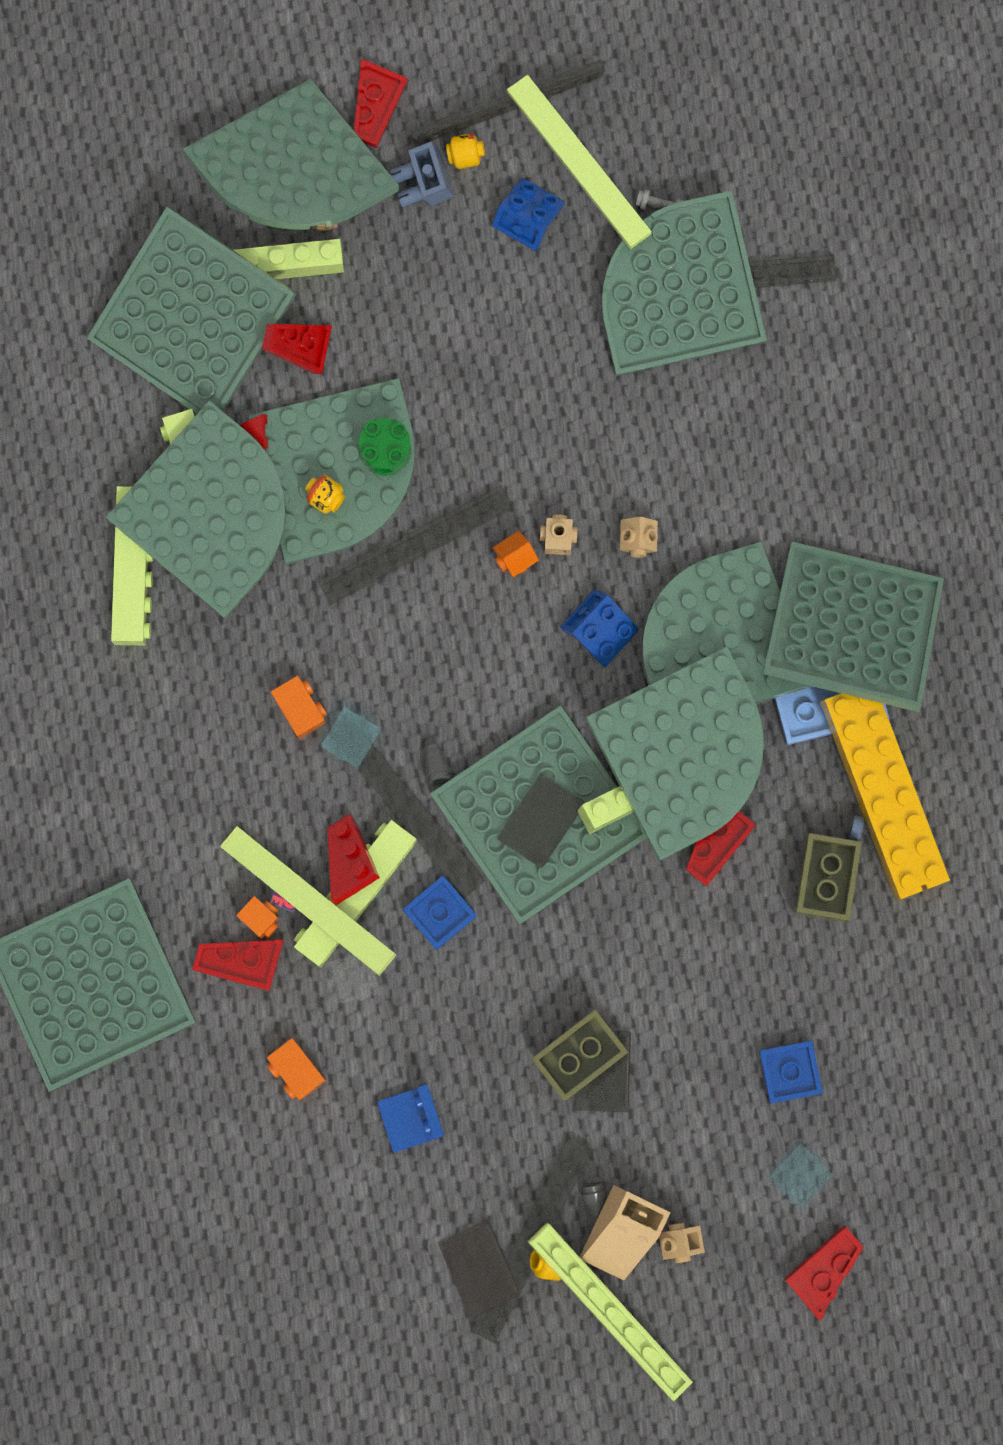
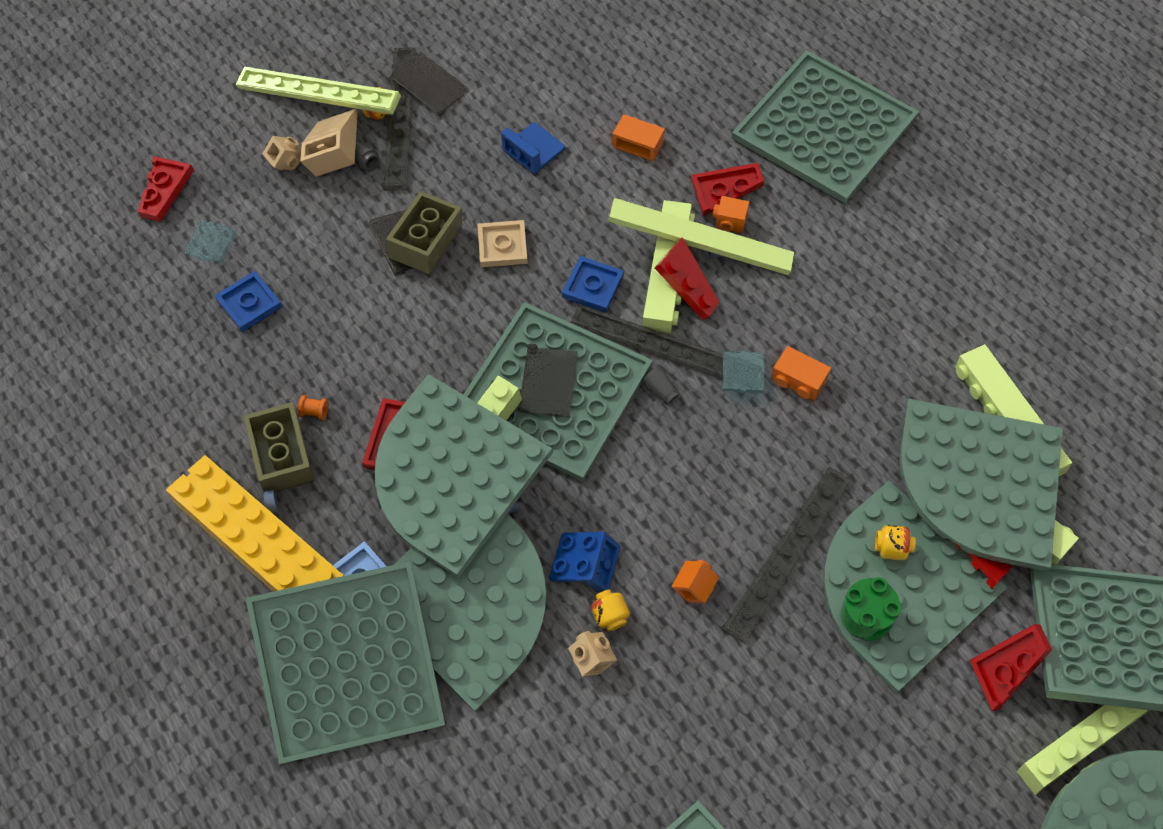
camera: 155 degrees right, 20 degrees down
(505, 1009) = (502, 243): none -> tan plate
(555, 543) = (666, 617): tan brick -> none
(602, 568) = (610, 610): none -> yellow head
(776, 912) = (313, 407): none -> orange bush

